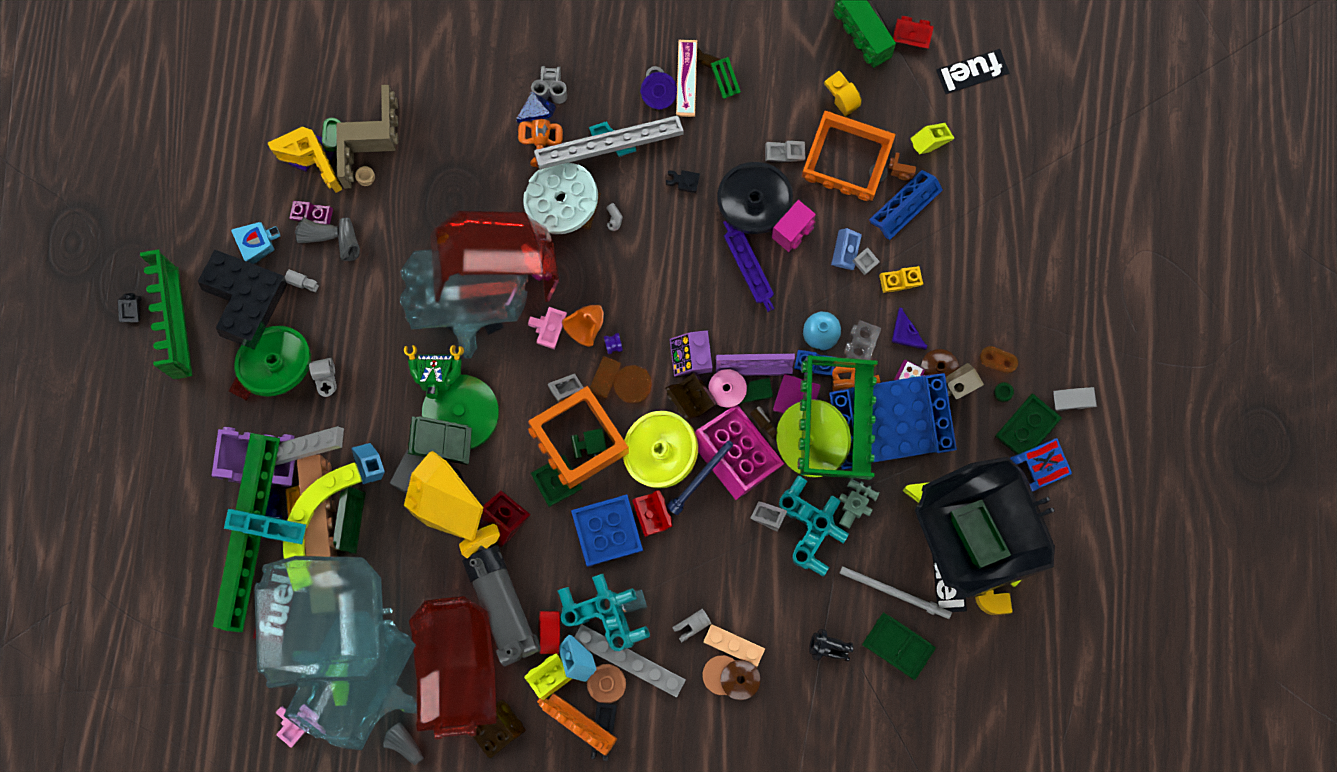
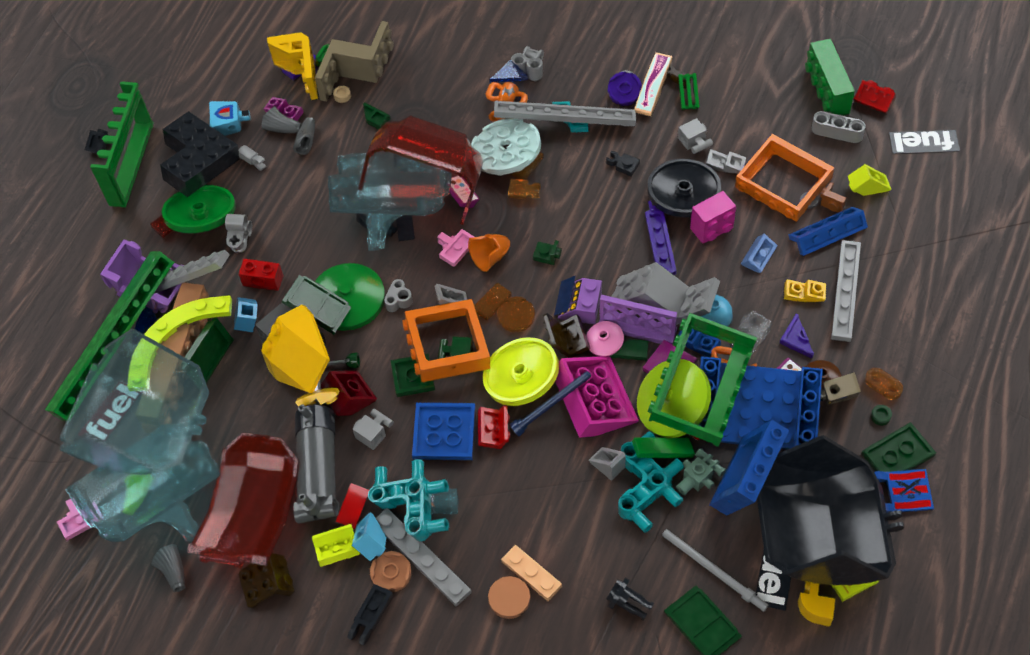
camera: 20 degrees right, 20 degrees down
(265, 526) = (121, 323): teal slope -> none
(366, 416) = (261, 274): none -> red brick
(410, 194) = (374, 116): none -> dark green tile
(435, 371) = (337, 252): green torso -> none
(492, 482) = (352, 361): none -> dark green hinge
(506, 399) = (393, 296): none -> light grey piece
(537, 552) = (371, 431): none -> light grey brick
(578, 723) = (347, 596): orange fence -> none
(590, 241) = (521, 188): none -> clear orange plate
(613, 343) = (509, 274): dark purple wheel -> none
(616, 217) = (550, 177): light grey arm -> none
(641, 307) = (547, 253): none -> dark green bracket
(674, 351) = (564, 295): none -> dark blue sticker
(696, 621) = (501, 538): light grey hinge -> none
(732, 672) = (526, 615): reddish brown dish -> none
(744, 130) = (694, 136): none -> light grey brick
(763, 421) = (630, 376): dark brown bar -> none
(772, 329) = (663, 290): none -> light grey bracket
(816, 490) = (663, 447): none -> green tile
(845, 93) = (796, 126): yellow brick -> none
(865, 261) = (774, 266): light grey plate -> none
(893, 75) = (838, 127): none -> light grey beam
(917, 497) = (749, 468): none -> blue piece
(940, 268) = (846, 291): none -> light grey plate
(979, 534) = (816, 528): dark green piece -> none
(1075, 398) = (957, 438): light grey slope -> none

